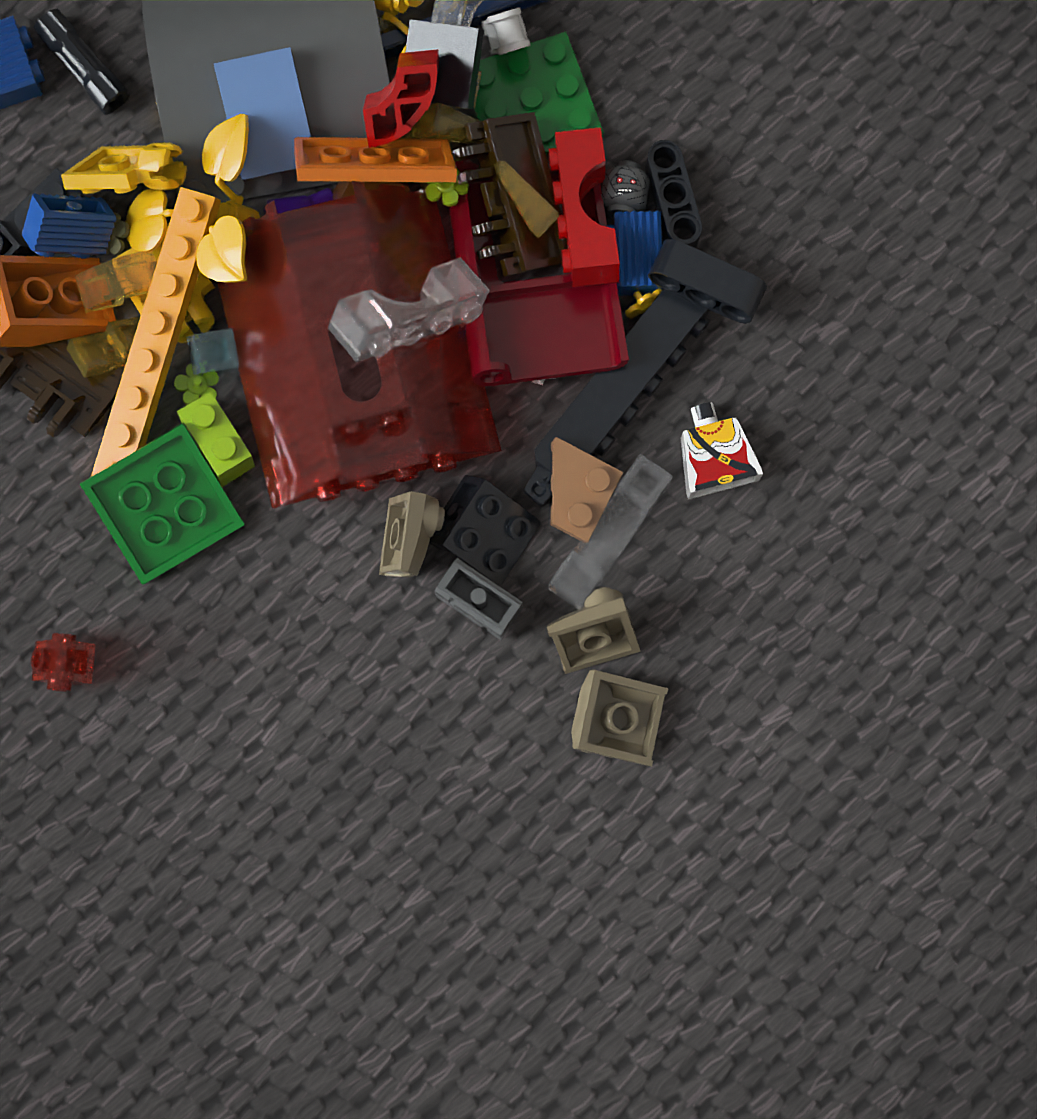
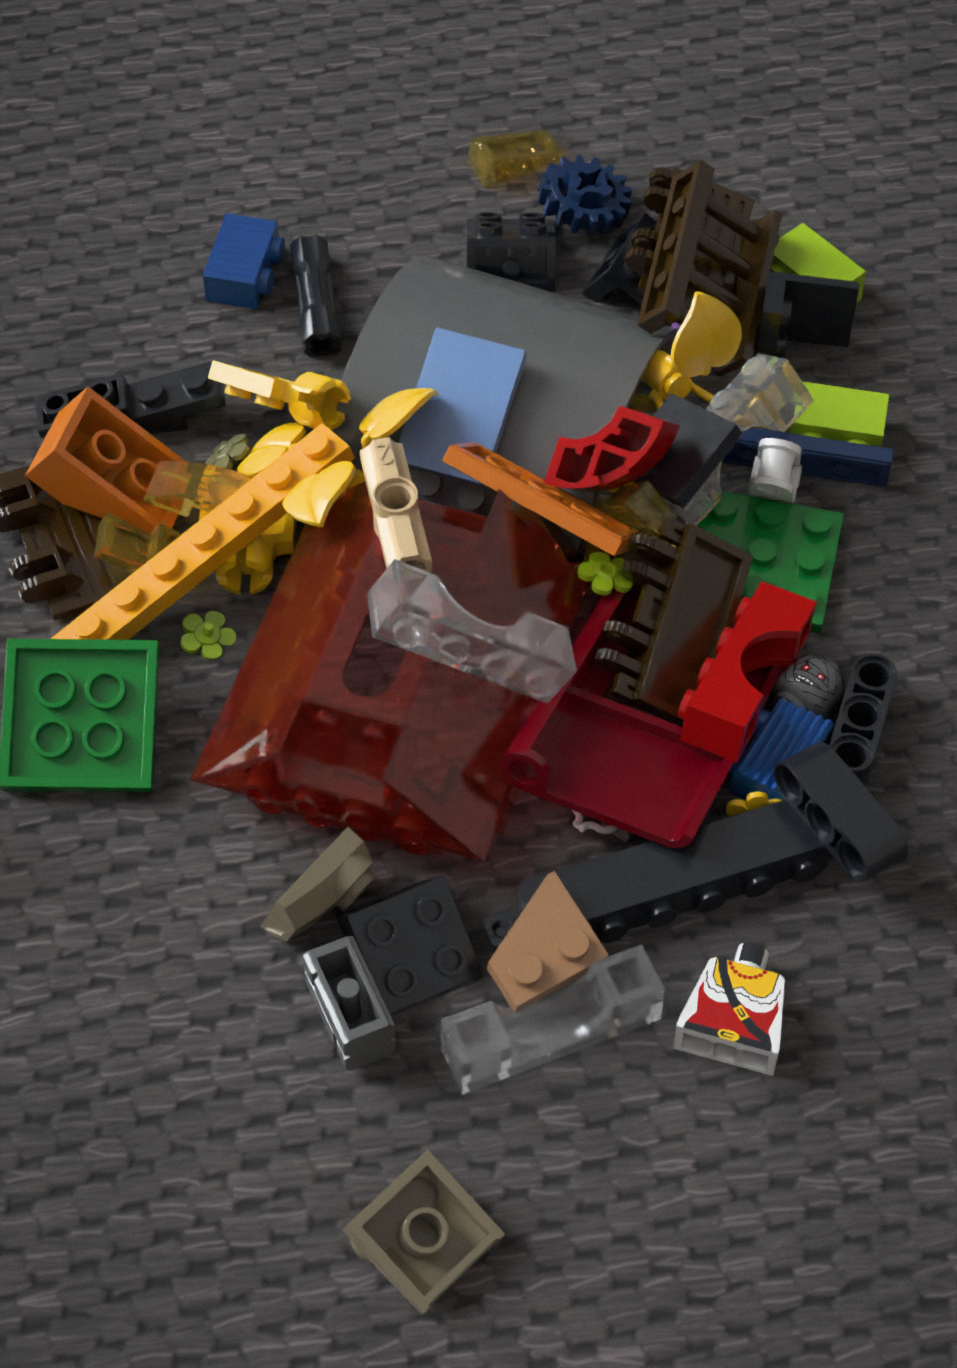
camera: 30 degrees right, 25 degrees down
(68, 225) = (186, 413): blue brick -> none
(212, 351) = (243, 600): clear light blue brick -> none
(216, 438) = (184, 687): lime brick -> none
(285, 230) = (395, 504): none -> tan piece
(531, 205) = (685, 630): clear yellow slope -> none
(595, 632) = (458, 1113): dark tan slope -> none

